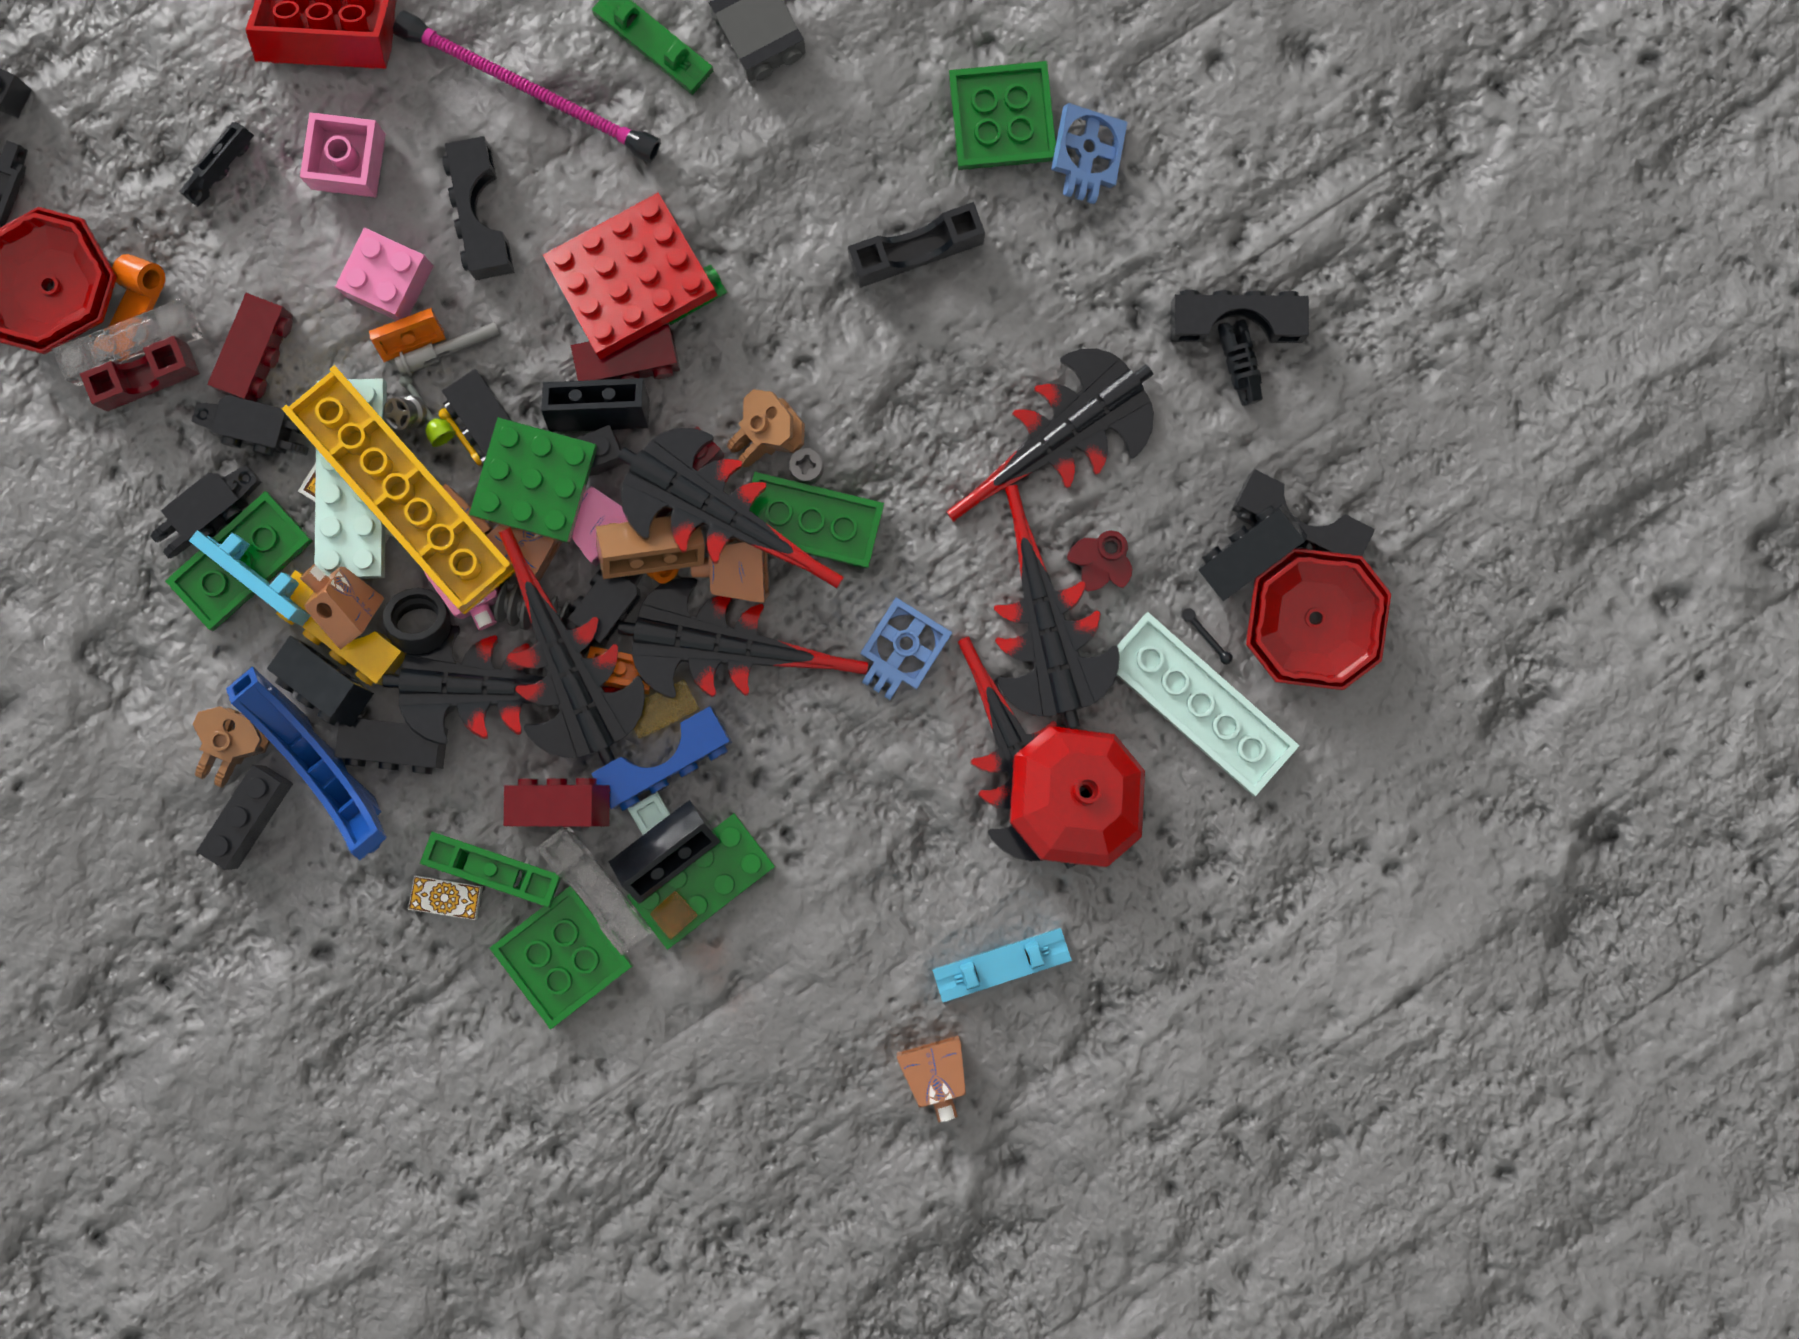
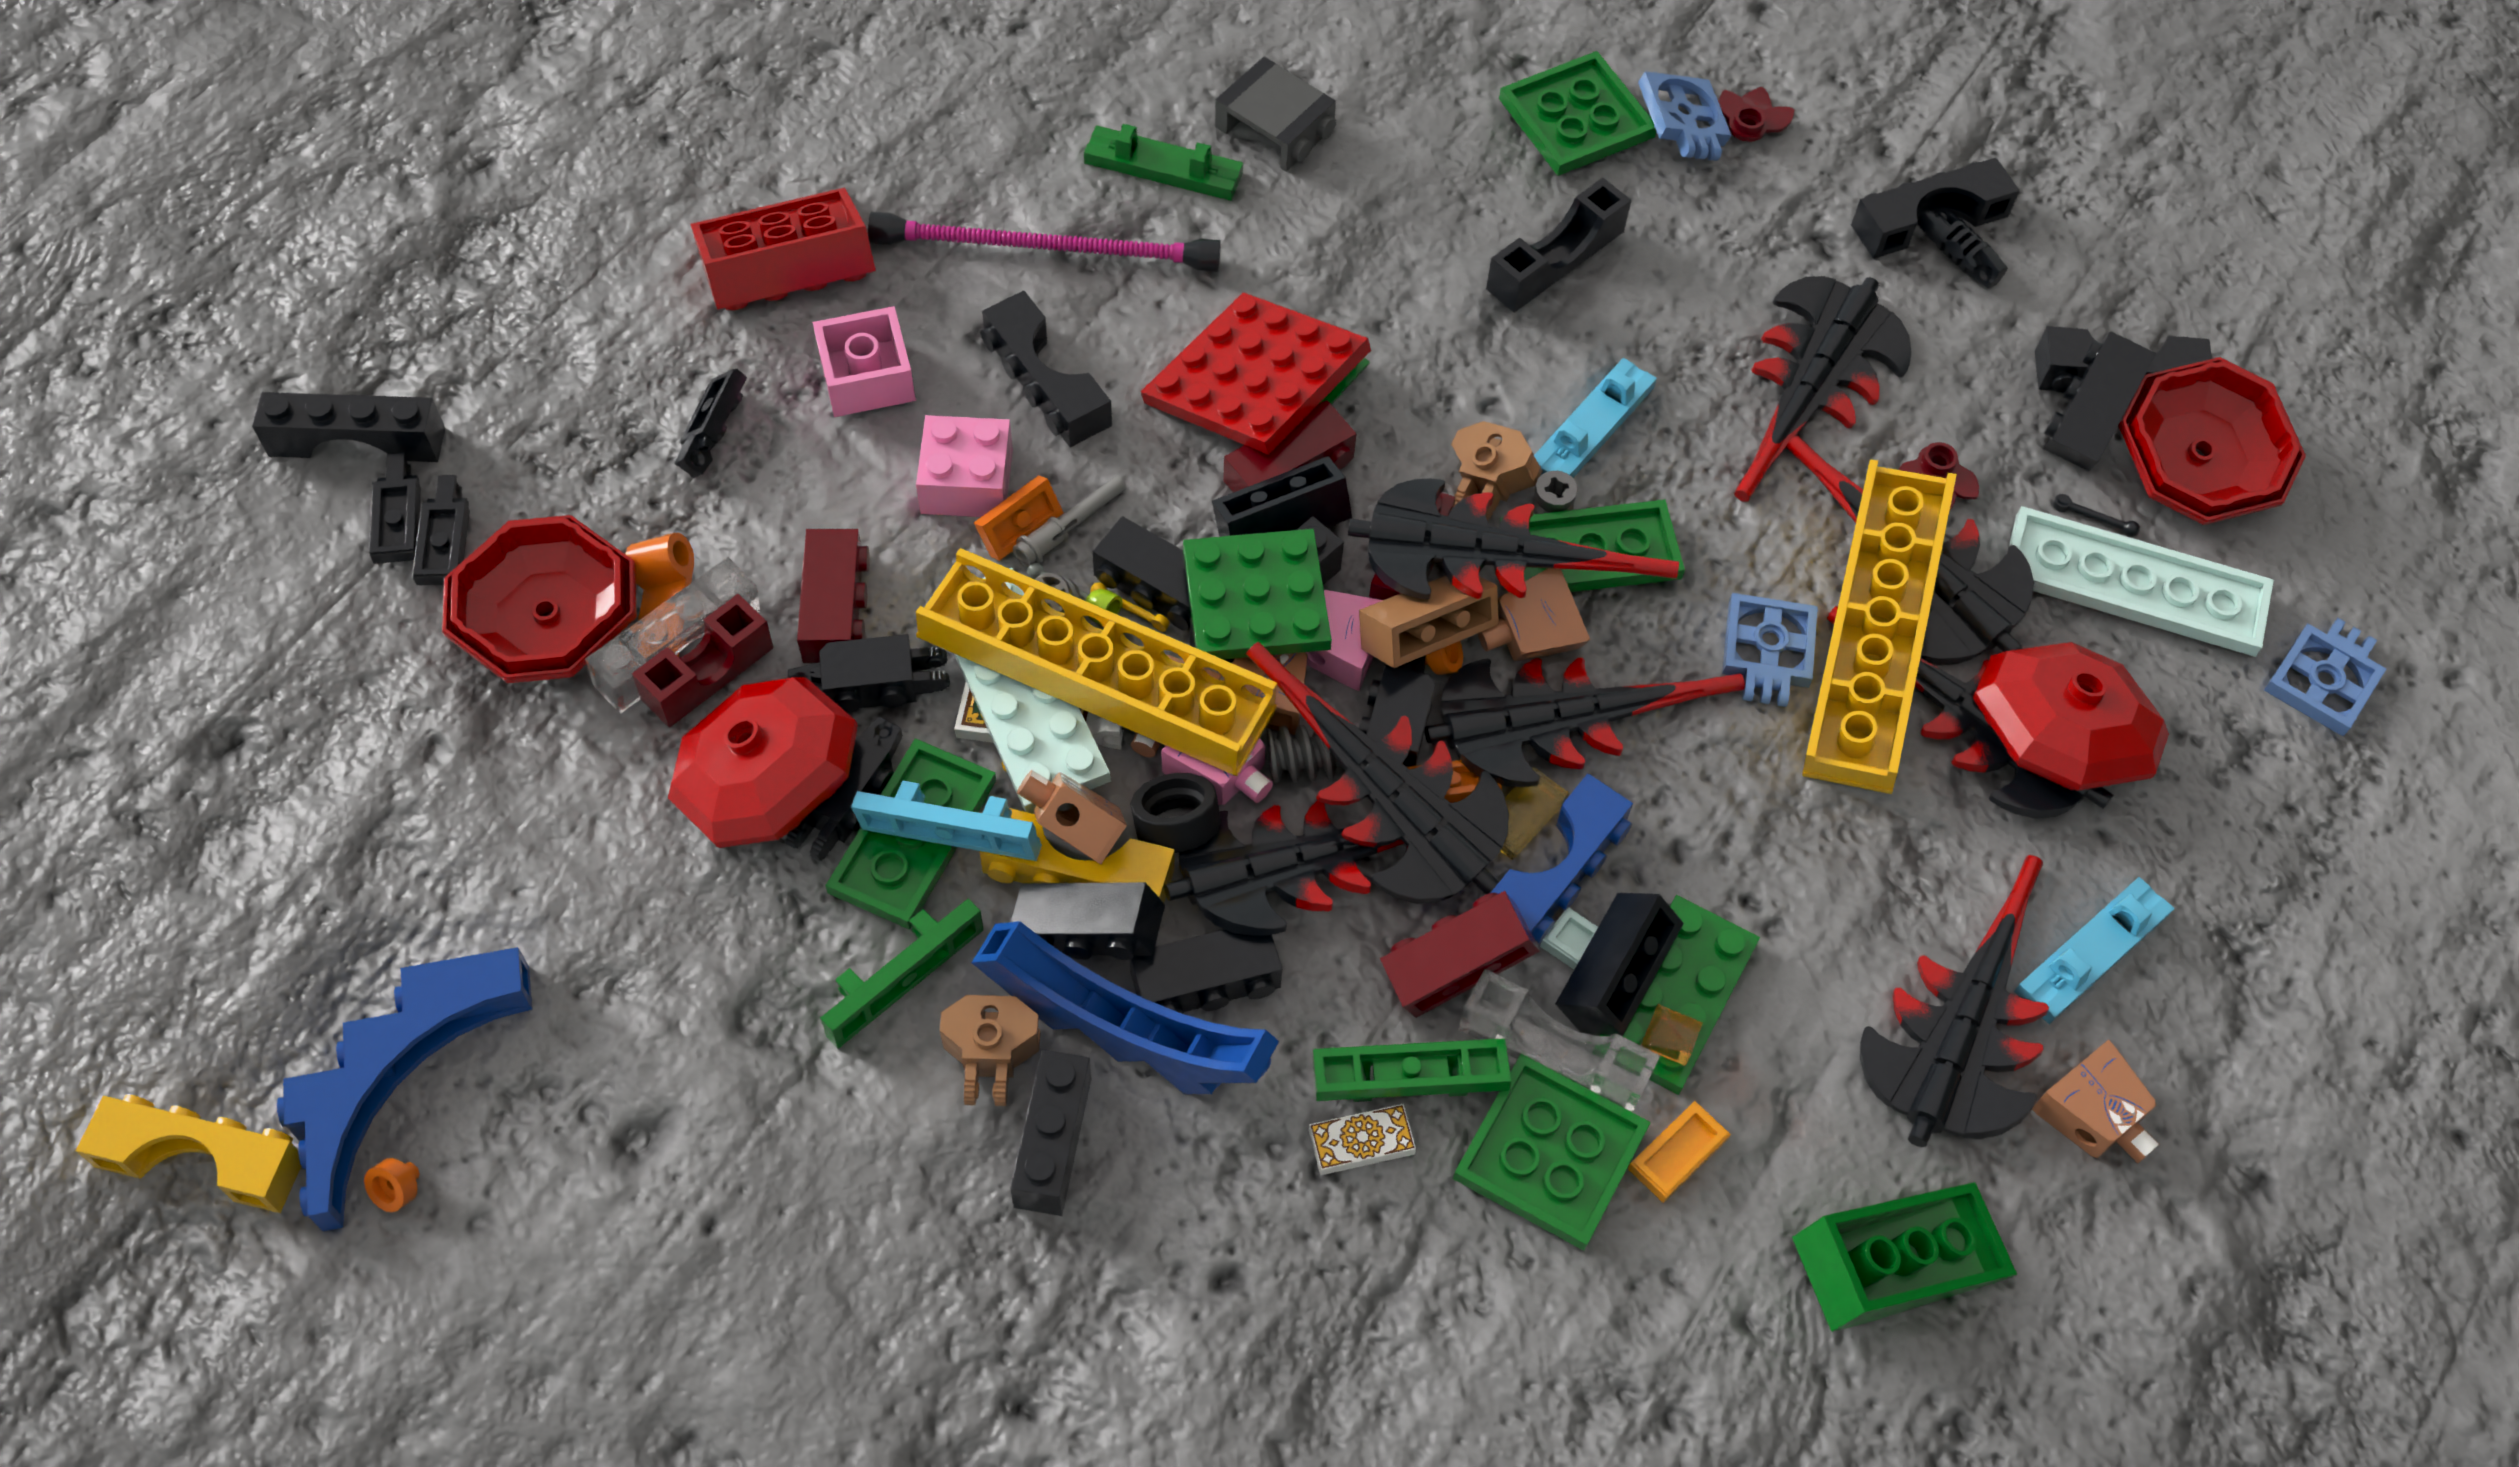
camera: 25 degrees left, 25 degrees down
(150, 474) = (762, 761): none -> red rock
(164, 674) = (869, 999): none -> green hinge
(646, 988) = (1679, 1151): none -> light orange tile
(751, 1117) = (1902, 1255): none -> green slope
(843, 1013) = (1944, 1078): none -> black animal
(870, 410) = (1595, 419): none -> medium azure hinge
(981, 669) = (1879, 629): none -> yellow tile
(1150, 165) = (1753, 114): none -> dark red plate
(1321, 817) = (2341, 652): none -> medium blue piece

